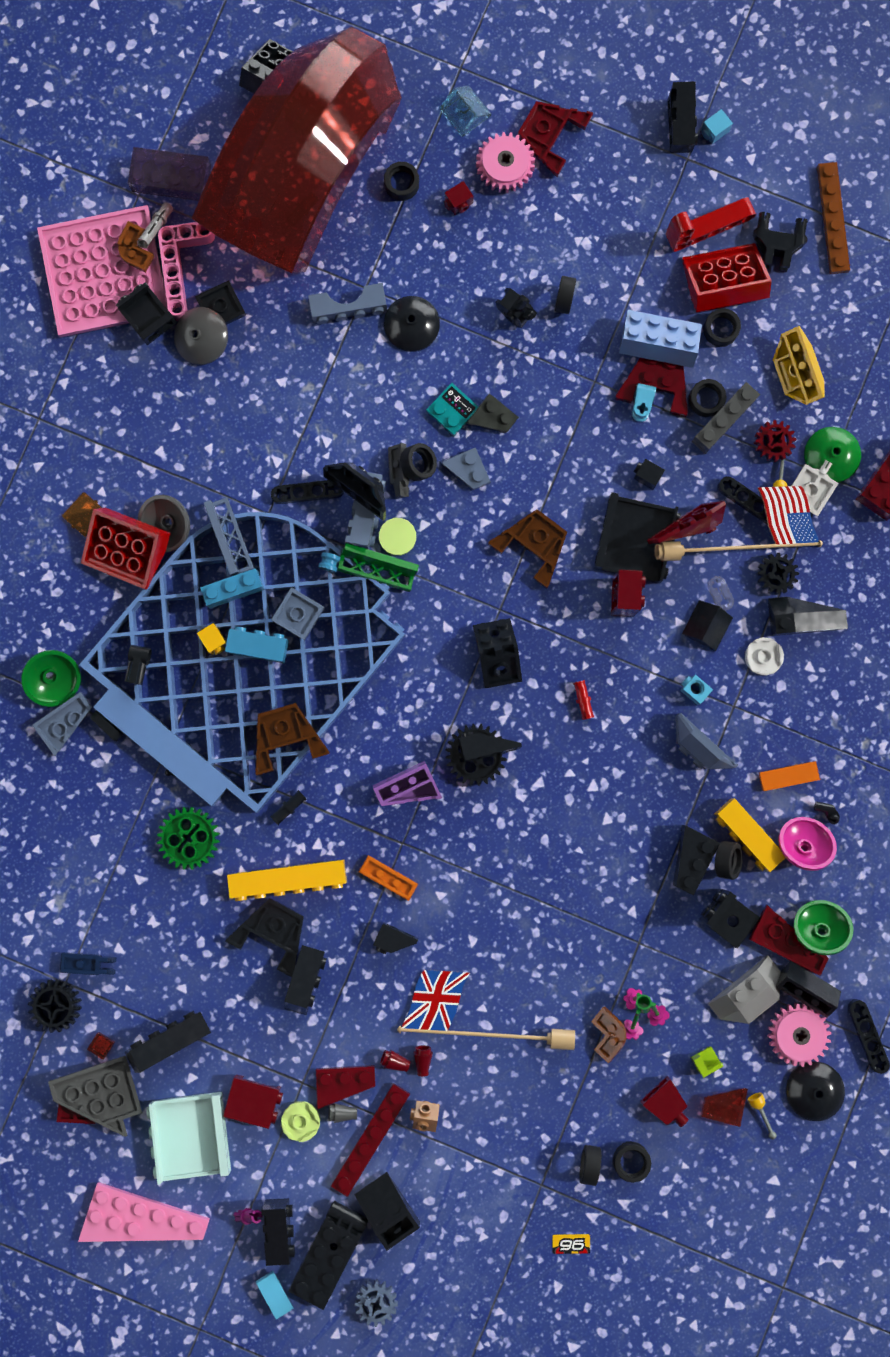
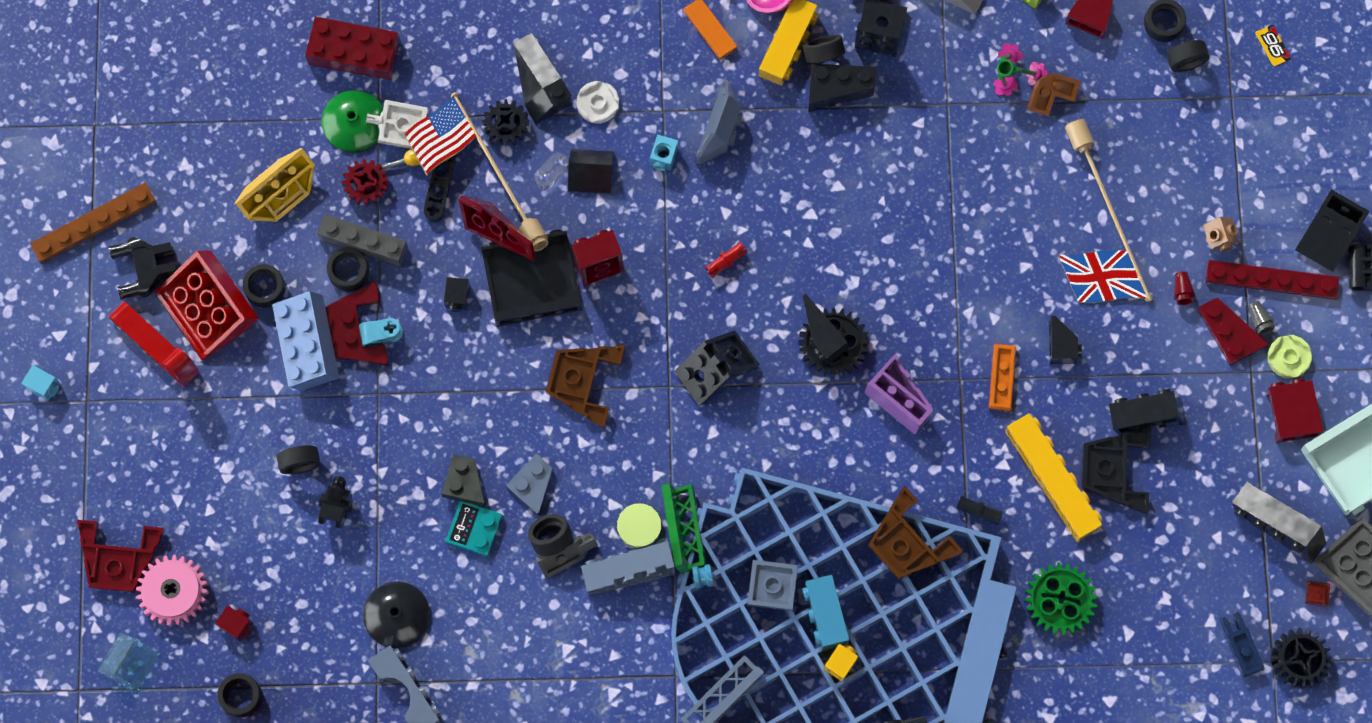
camera: 110 degrees left, 10 degrees down
(232, 588) = (777, 665): dark azure brick -> none
(308, 495) = (634, 641): black beam -> none
(358, 485) = (607, 577): black wedge -> none
(423, 1059) = (1167, 261): dark red cone -> none
(682, 117) = (46, 421): black wedge -> none

